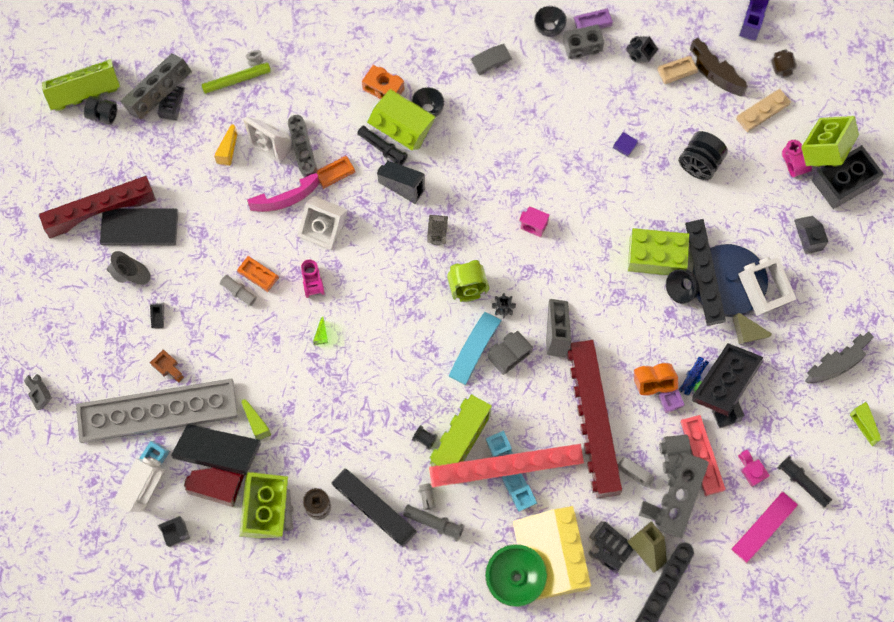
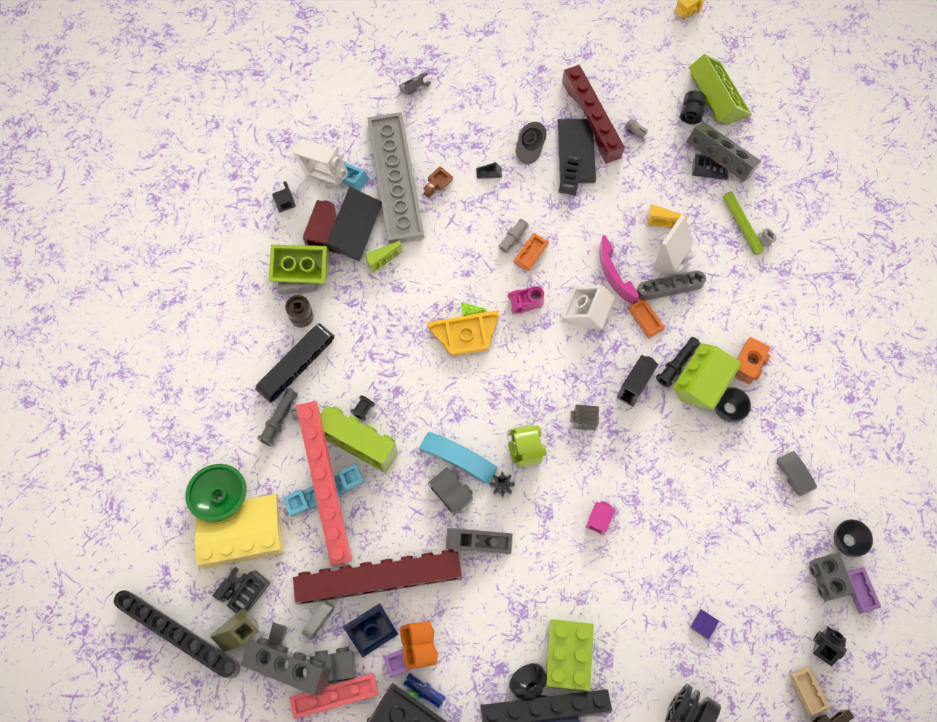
camera: 90 degrees right, 0 degrees up
(115, 169) = (636, 128): none -> light grey pin
(161, 221) = (572, 164): none -> black slope
(346, 338) = (465, 333): none -> yellow wing
(641, 424) = (370, 630): none -> dark blue slope

